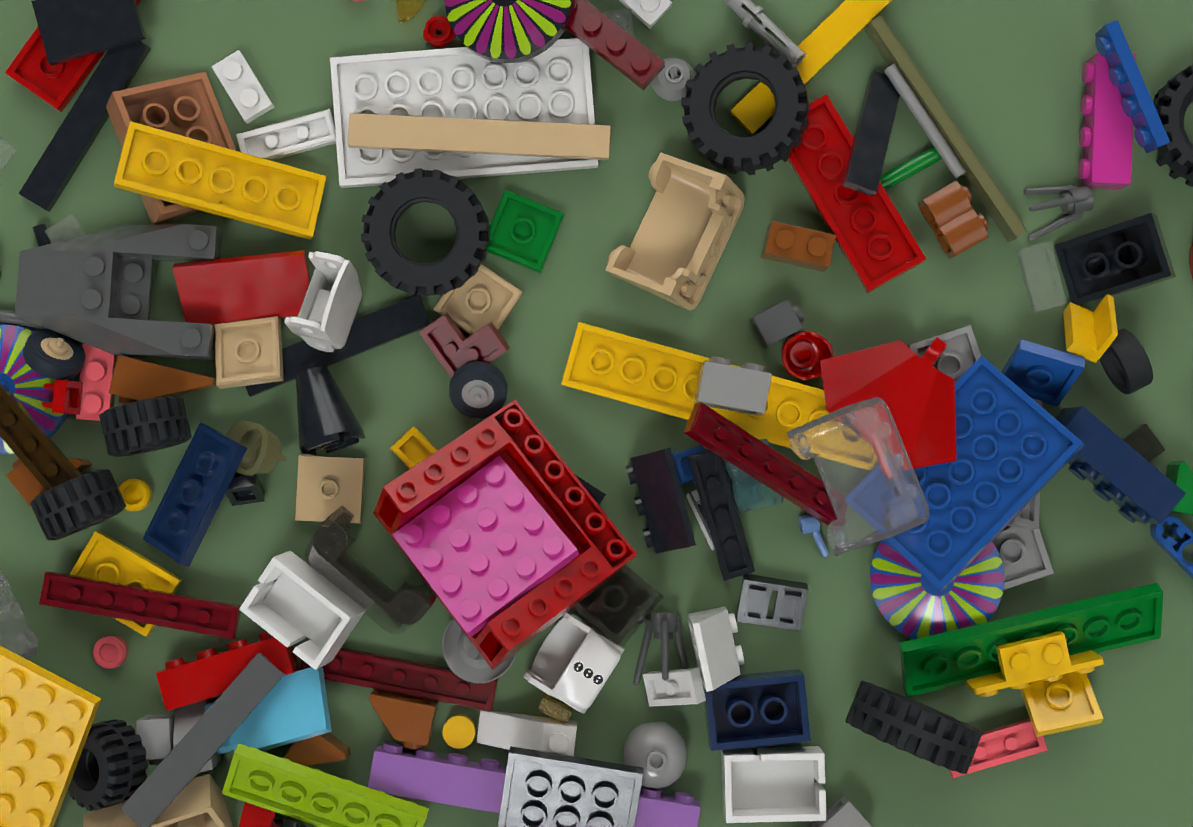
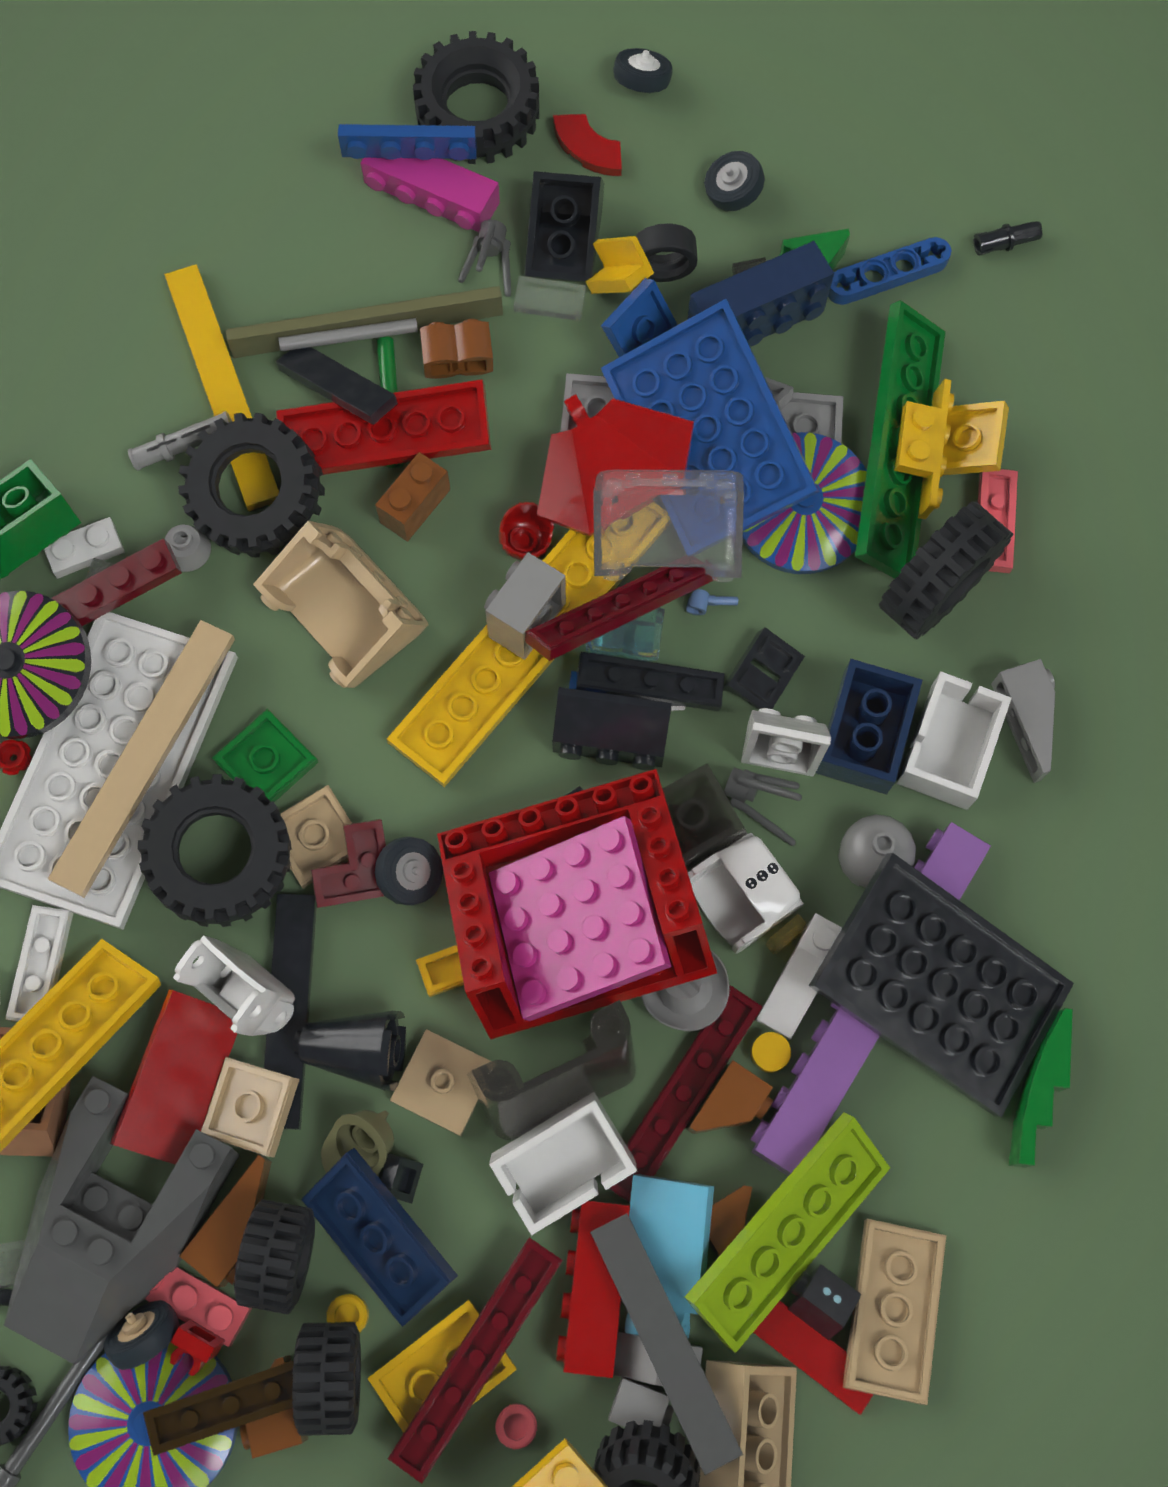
camera: 70 degrees left, 15 degrees down
(681, 688) = (817, 786): white plate -> none
(777, 323) = (480, 548): dark grey brick -> none

